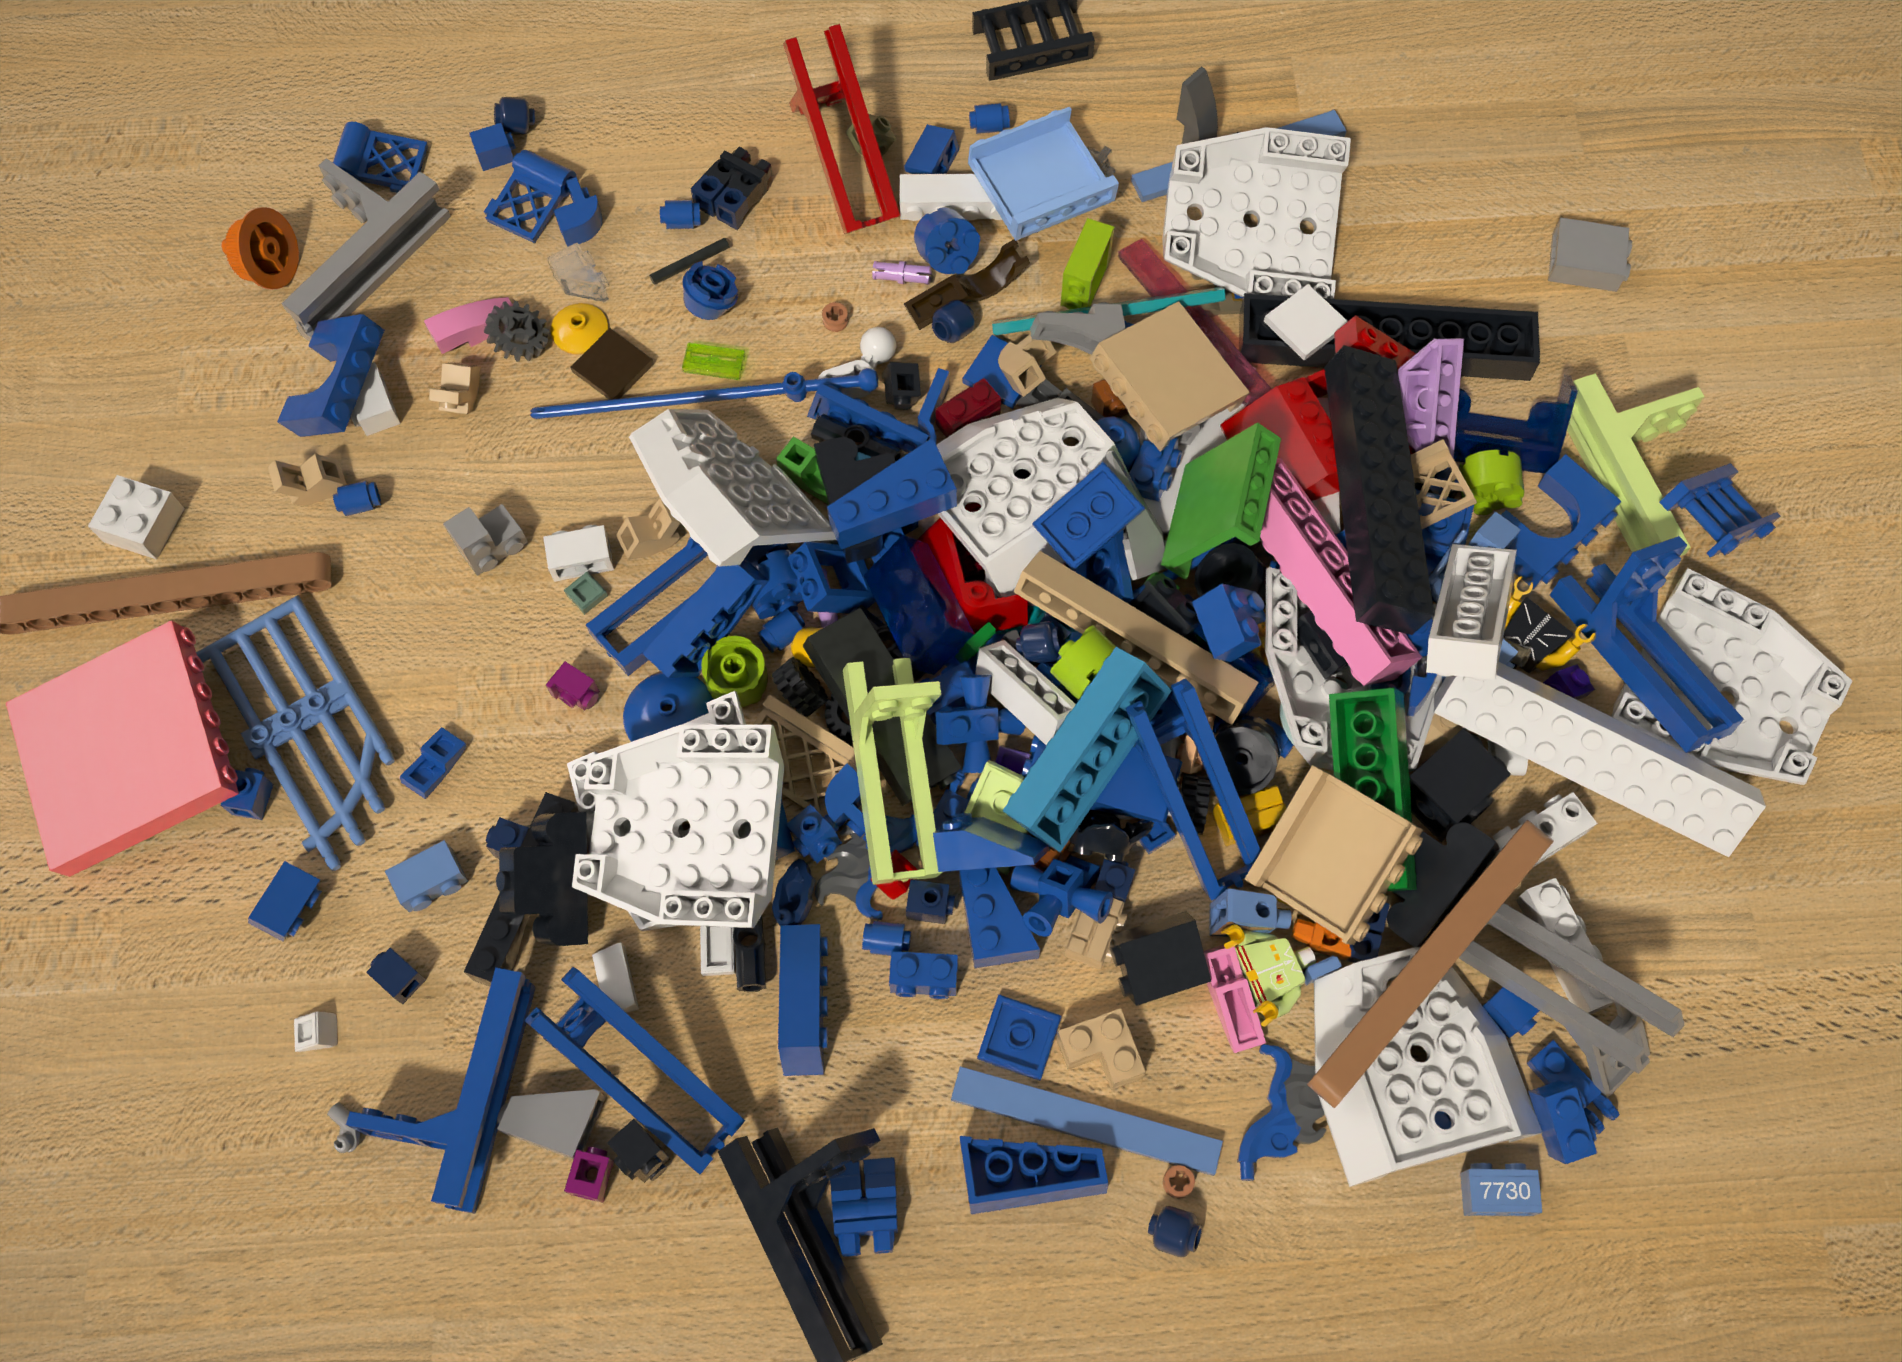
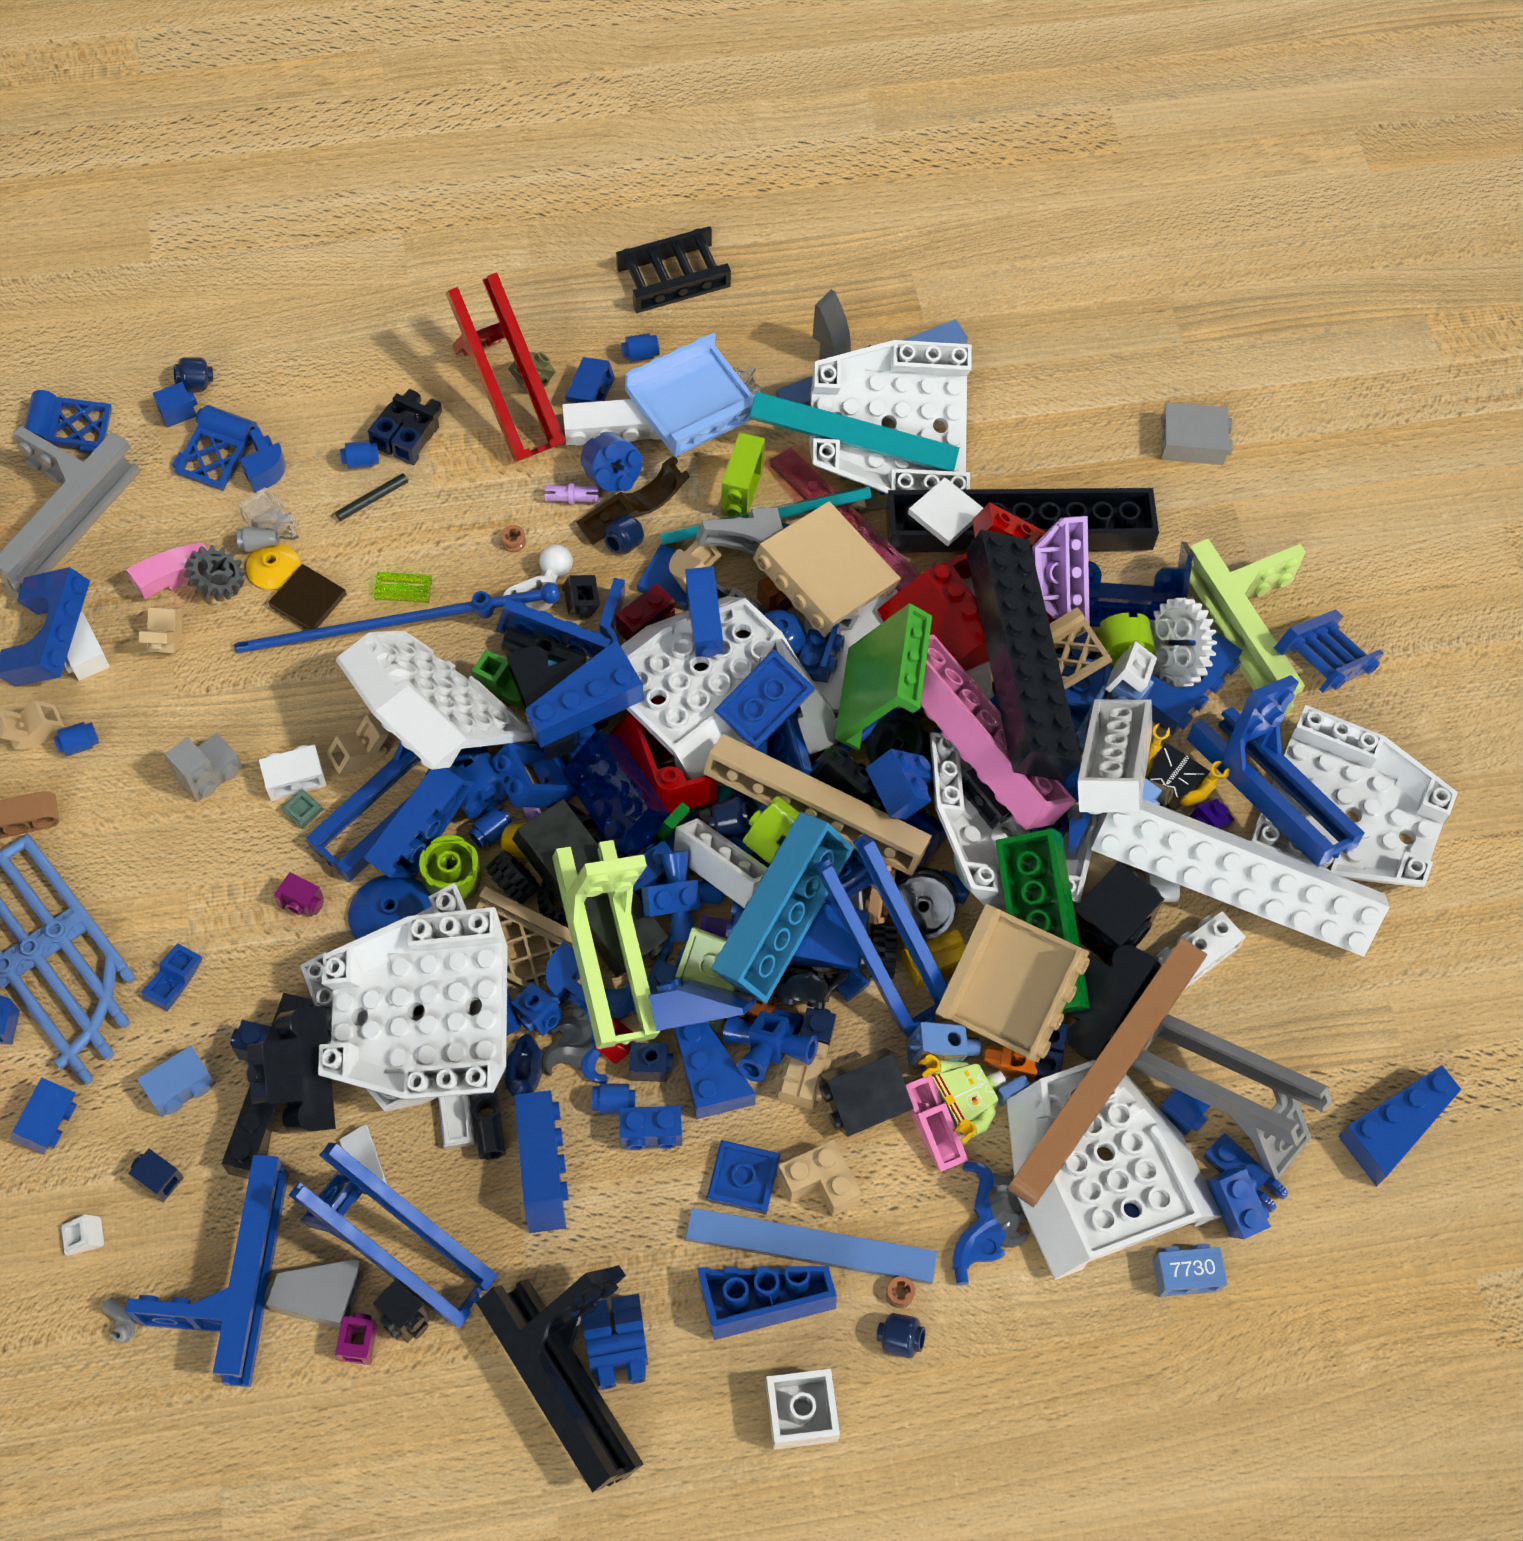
camera: 10 degrees left, 5 degrees down
(562, 297) = (256, 538): none -> light grey cone
(709, 290) = (393, 523): blue cone -> none
(1031, 414) = (704, 611): none -> blue slope
(1060, 1303) = (802, 1409): none -> white brick
(1212, 227) = (853, 432): none -> teal tile
(1499, 511) = (1133, 667): none -> white panel
(1551, 908) = (1211, 1014): white brick -> none
(1562, 464) = (1182, 621): none -> white gear
(1748, 1053) = (1393, 1128): none -> blue wedge

